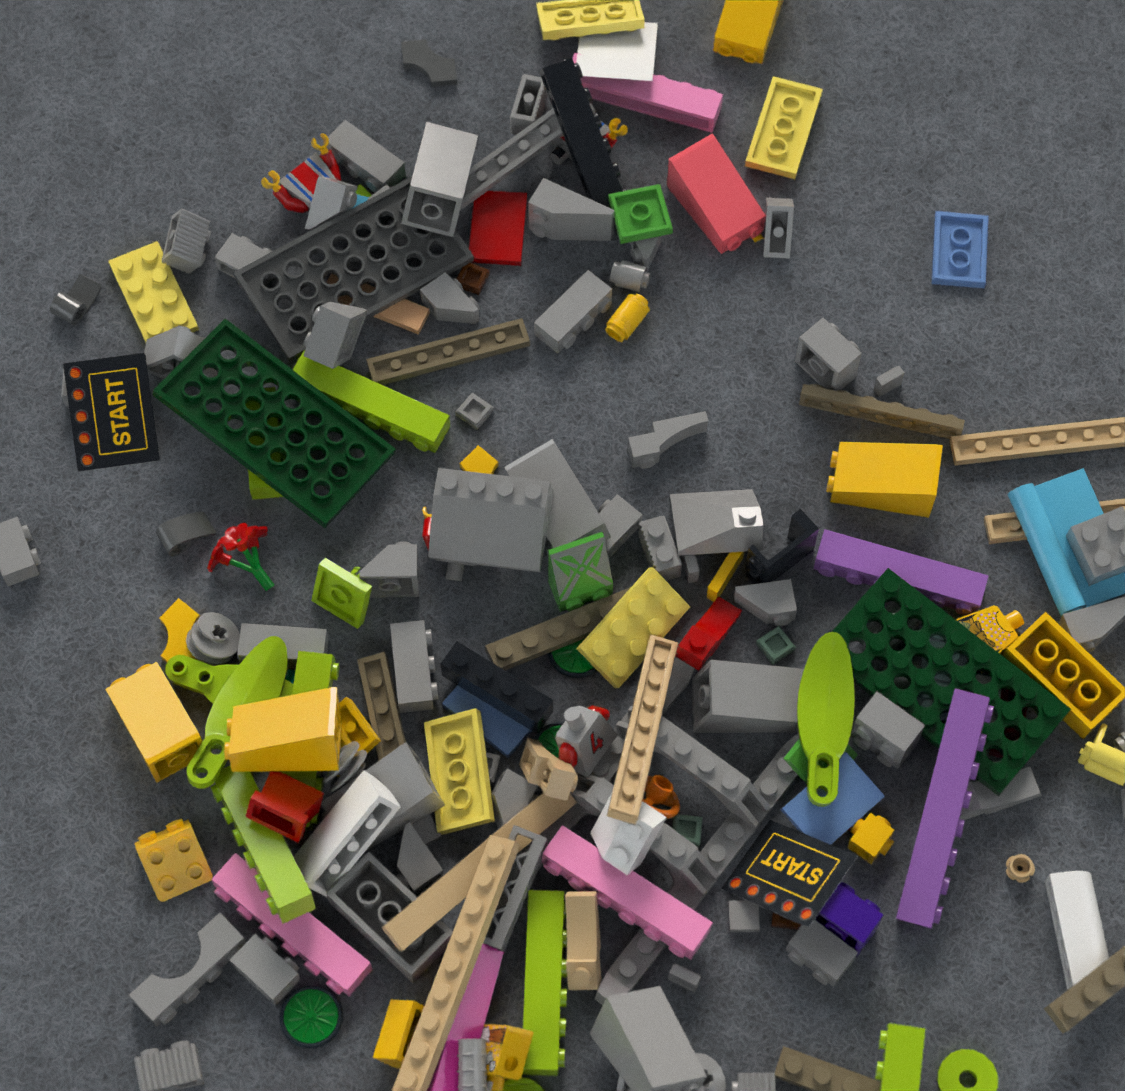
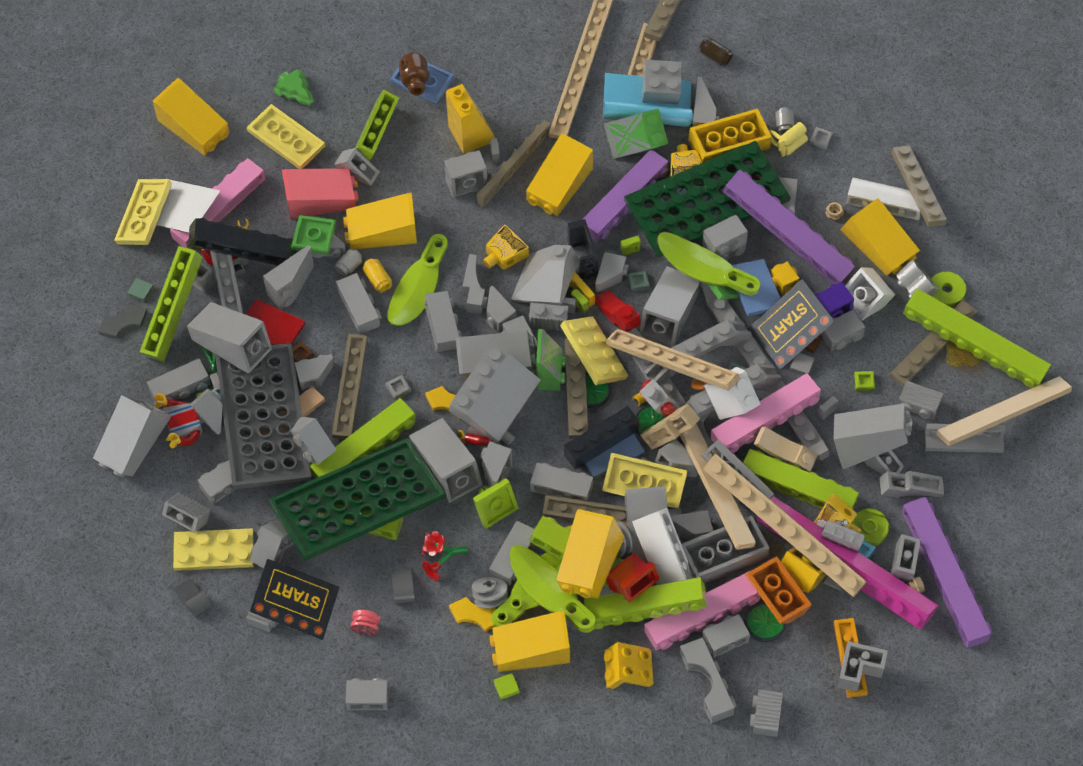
camera: 65 degrees left, 5 degrees down
(90, 715) = (506, 686): none -> lime tile
(114, 507) = (365, 622): none -> coral wheel
(263, 132) = (130, 435): none -> light grey slope
(347, 1011) = (779, 591): none -> orange slope
(384, 506) = (447, 459): none -> light grey slope
(460, 96) = (171, 304): none -> lime brick
(482, 62) = (140, 290): none -> sand green tile
(592, 421) = (442, 320): none -> light grey brick
(637, 371) = (419, 280): none -> lime plant
(642, 482) = (498, 310): none -> light grey slope
(704, 579) = (582, 302): none -> lime tile
(705, 290) = (381, 223): none -> yellow slope
(739, 454) = (505, 249): none -> yellow torso
(756, 1015) = (864, 381): none -> lime tile
(824, 611) = (630, 245): none -> lime tile
(849, 221) = (376, 124): none -> lime brick
(864, 105) = (294, 86): none -> bright green rock
(901, 963) = (869, 292): none -> white slope
(909, 323) = (466, 120): none -> yellow slope
(952, 1029) = (915, 277): none -> light grey brick
(953, 232) = (414, 72): none -> reddish brown piece
(1000, 951) = (880, 238): none -> yellow slope
(1005, 547) = (635, 133): none -> bright green slope

